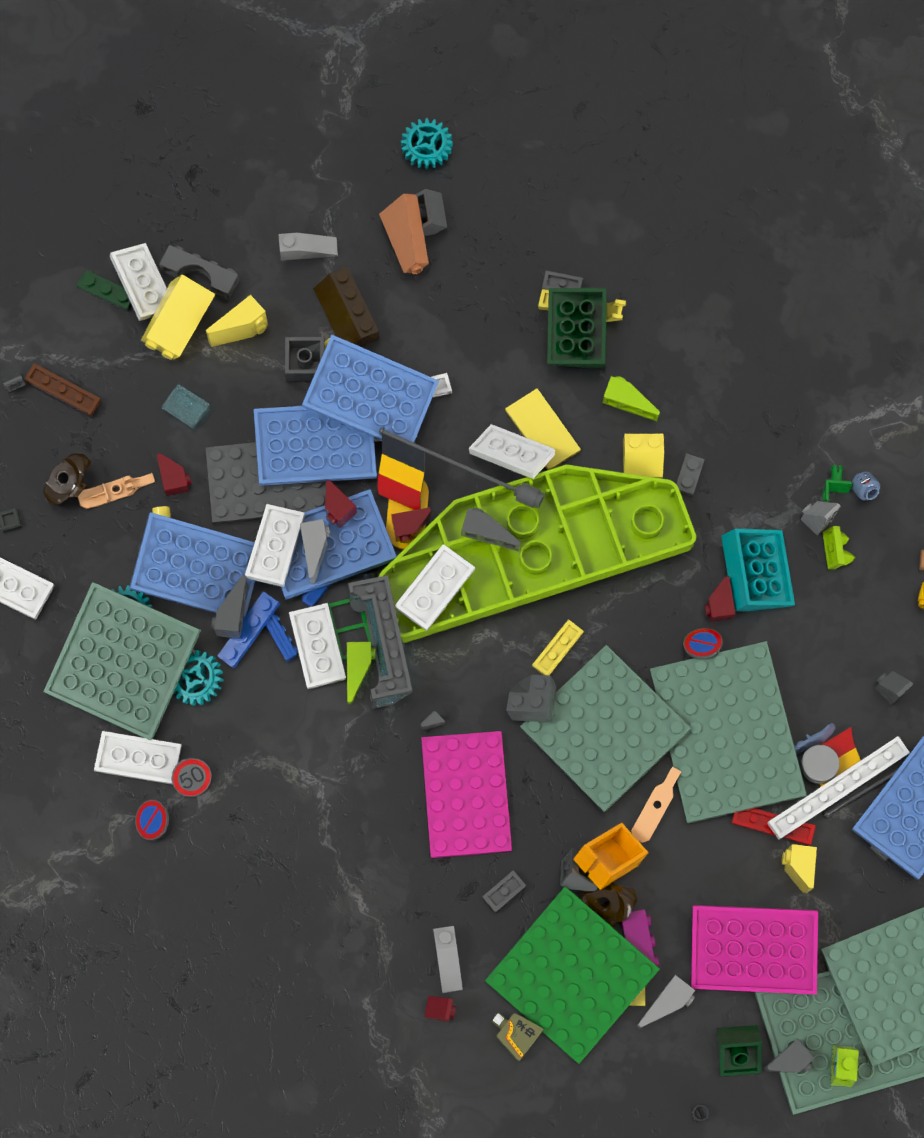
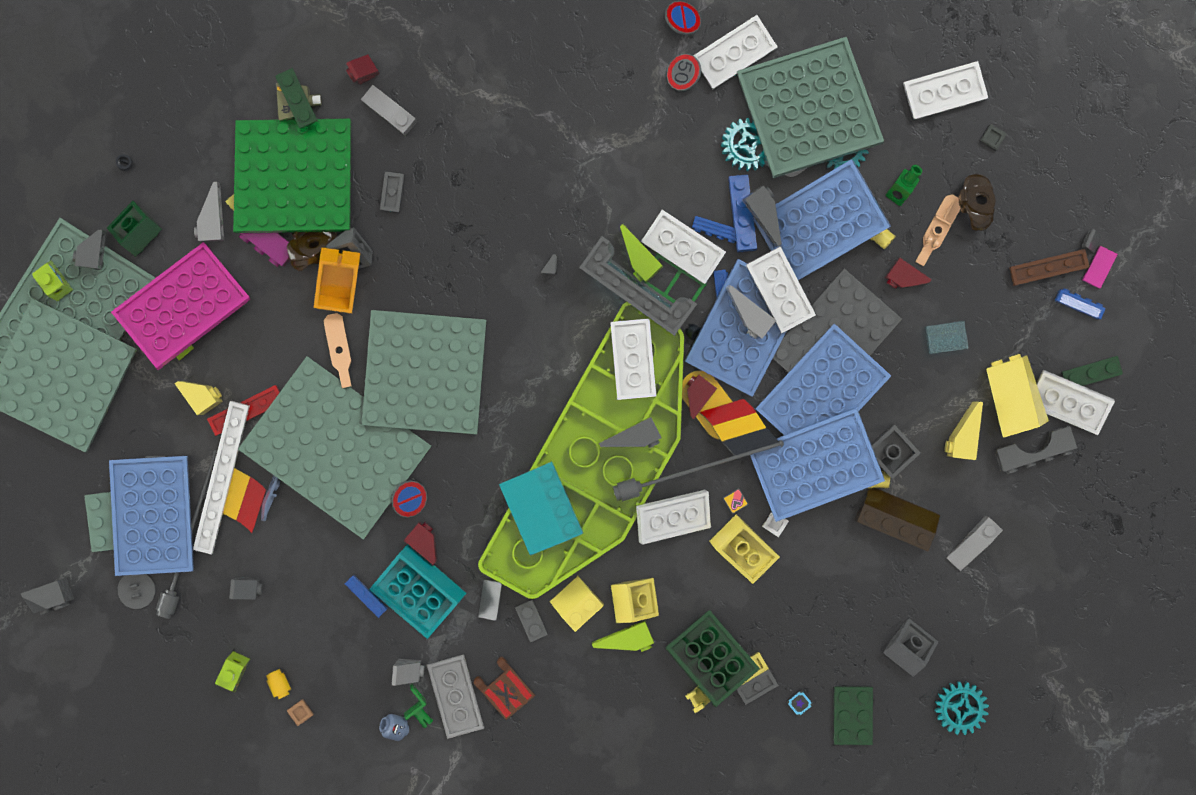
camera: 145 degrees right, 15 degrees up
(25, 358) = (1099, 267): none -> dark pink tile
(68, 349) = (1082, 305): none -> piece
(107, 542) = (905, 184): none -> green bracket
(338, 506) = (763, 360): dark red slope -> none
(406, 233) = (908, 619): nougat slope -> none
(454, 427) = (735, 501): none -> tile
(466, 794) = (480, 237): dark pink plate -> none
(480, 387) = (744, 549): none -> light yellow slope
(510, 206) = (853, 715): none -> dark green plate
(514, 1032) = (296, 98): none -> dark green plate
(532, 699) = (493, 345): dark grey slope -> none
(540, 423) = (670, 559): light yellow tile -> none
(541, 247) = (799, 703): none -> tile
(558, 648) = (510, 401): light yellow tile -> none
(597, 420) = (634, 600): none -> light yellow slope
(607, 539) = (541, 508): none -> teal slope
(708, 515) = (490, 600): none -> slope
(754, 439) = (507, 691): none -> flag
(797, 470) = (455, 696): none -> light grey tile
(802, 601) = (366, 596): none -> blue piece
(819, 764) = (249, 483): light grey head -> none
(833, 543) = (372, 654): lime tile -> none

